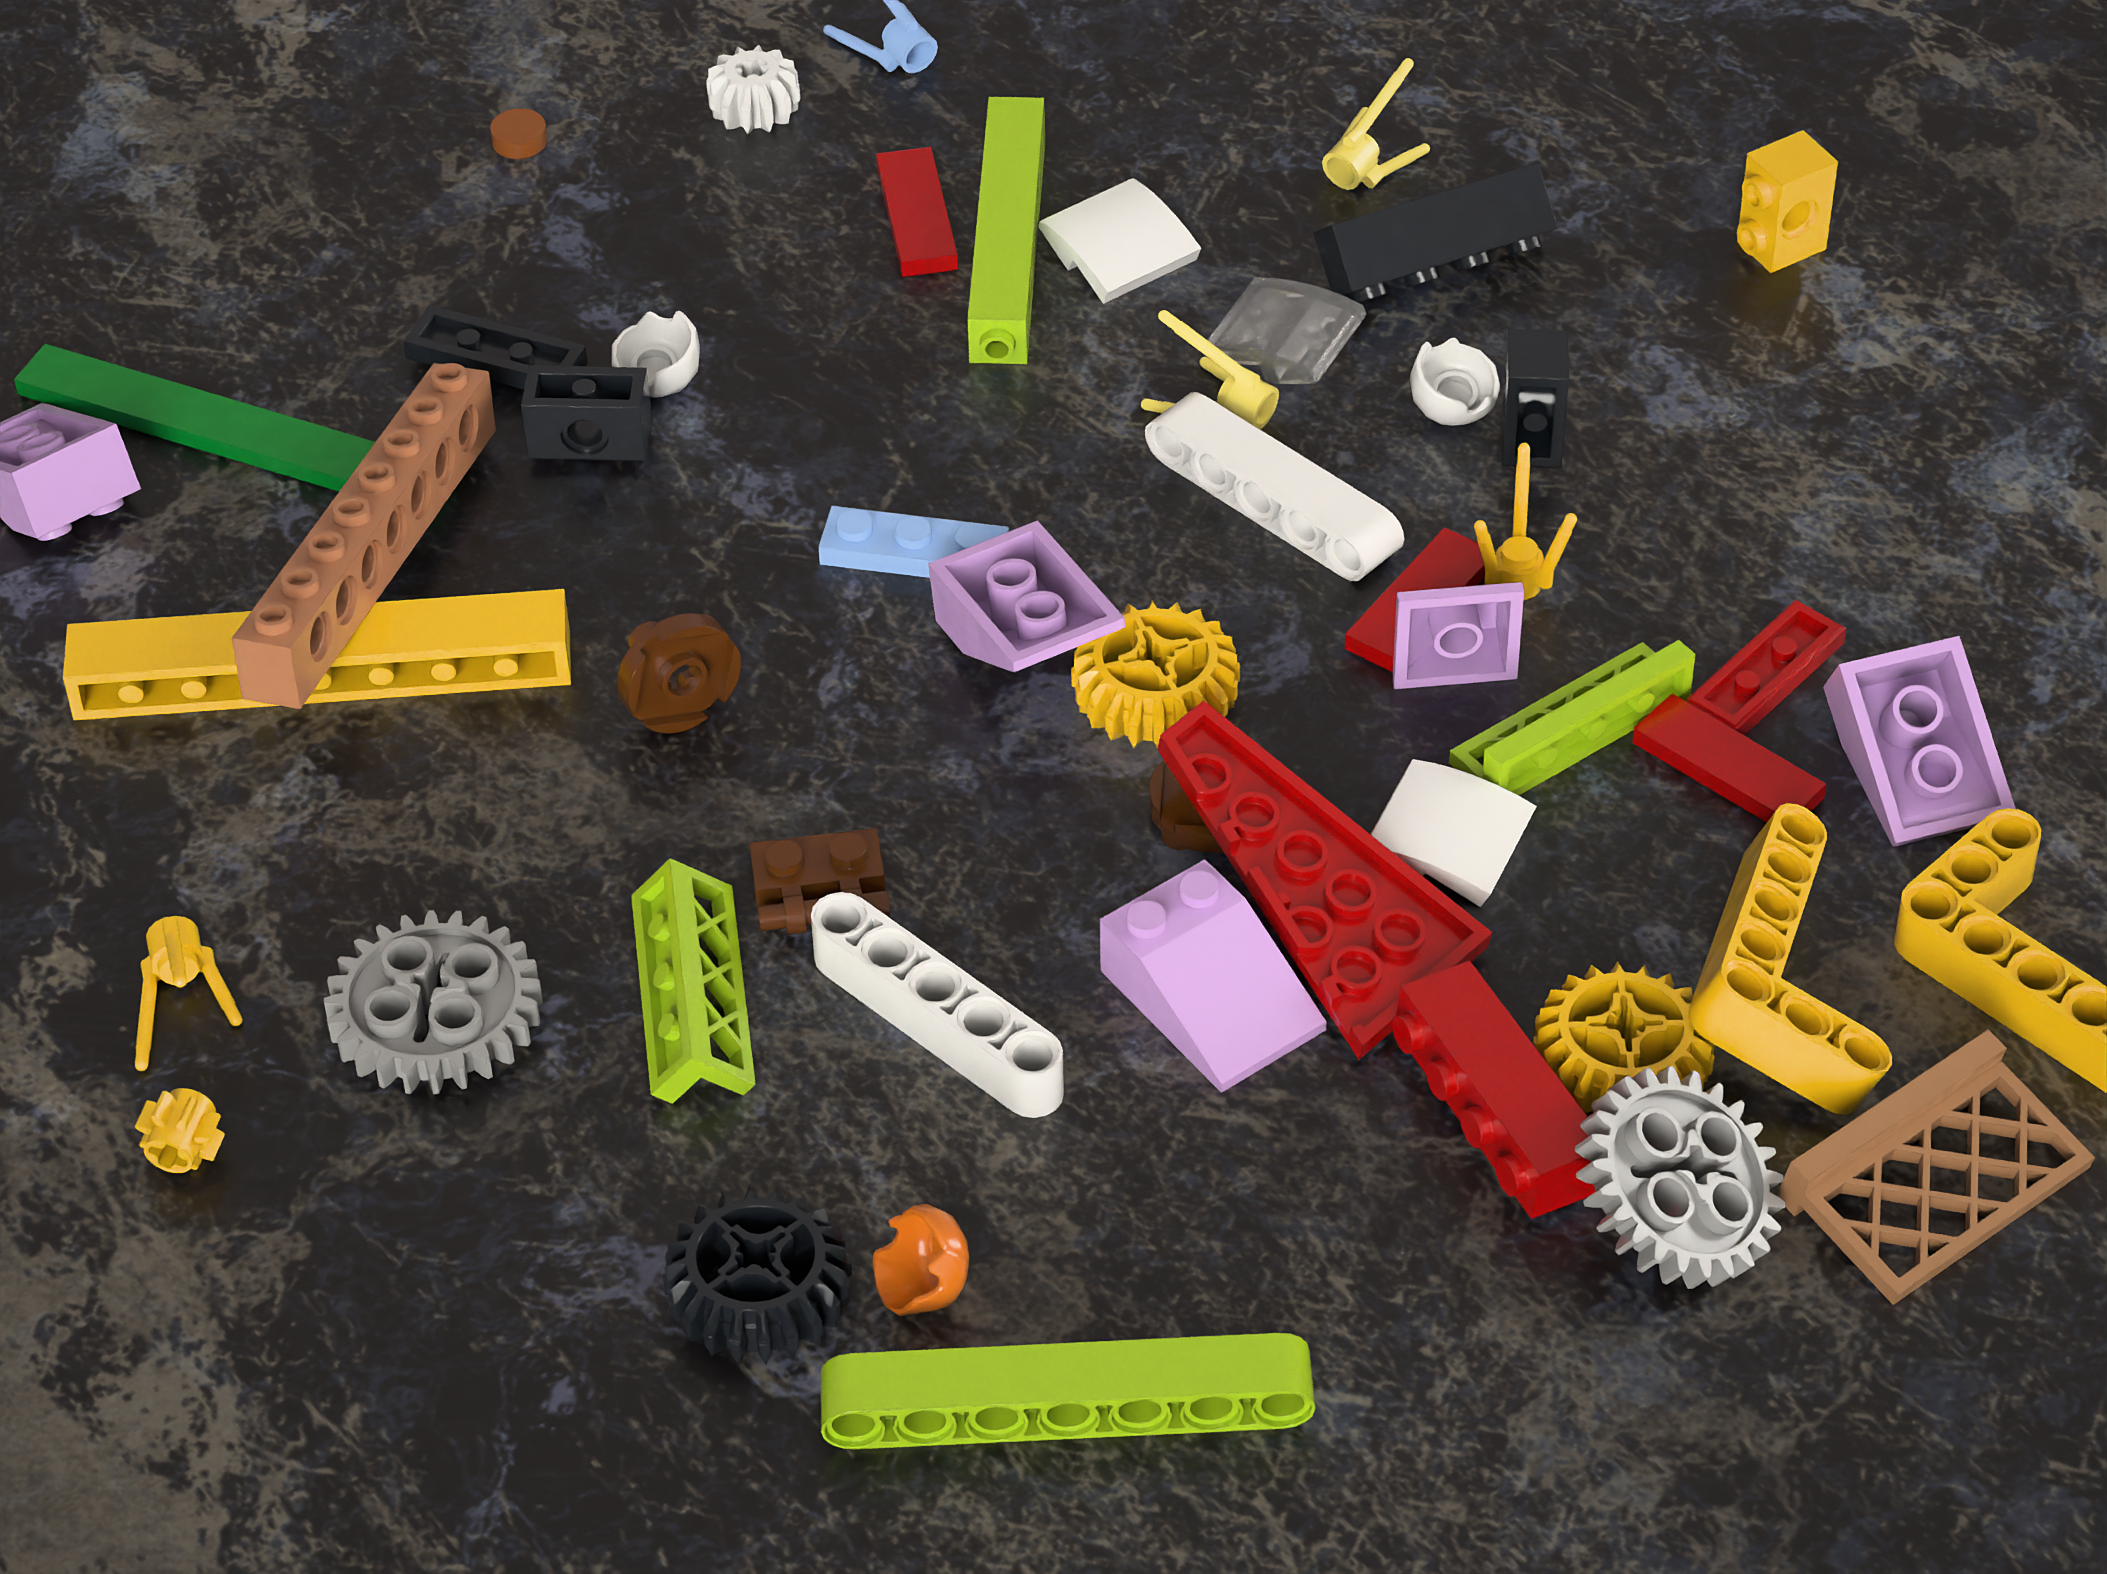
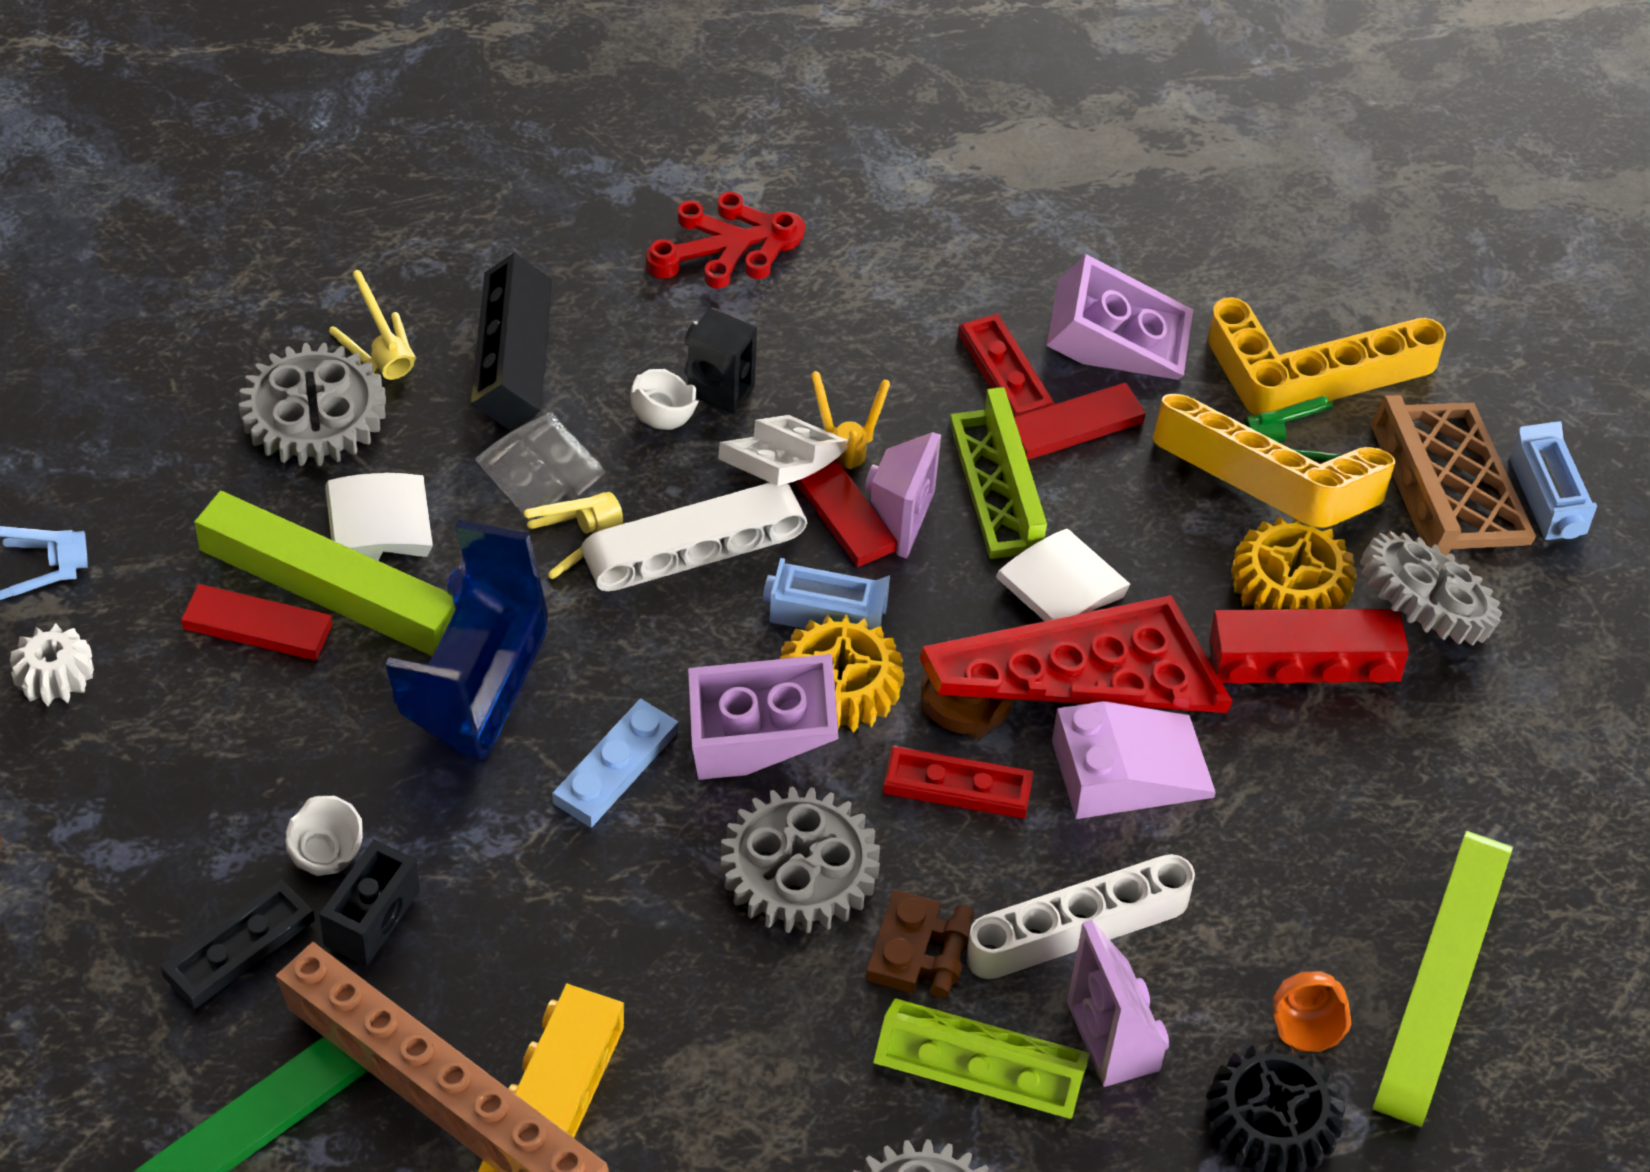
camera: 70 degrees left, 5 degrees up
(660, 650) = (693, 943): reddish brown plate -> none
(790, 1045) = (1113, 1011): none -> lavender slope
(865, 732) = (800, 859): none -> light grey gear
(958, 379) = (485, 646): none -> clear blue windscreen
(1077, 840) = (958, 782): none -> red tile
(1234, 128) = (277, 405): none -> light grey gear
(1256, 616) = (811, 594): none -> light blue window
(1444, 508) = (783, 450): none -> white slope
(1786, 201) = (618, 155): yellow brick -> none
(1817, 393) = (778, 231): none -> red plant
(1859, 949) = (1273, 423): none -> green plant
(2005, 1279) = (1551, 481): none -> light blue window

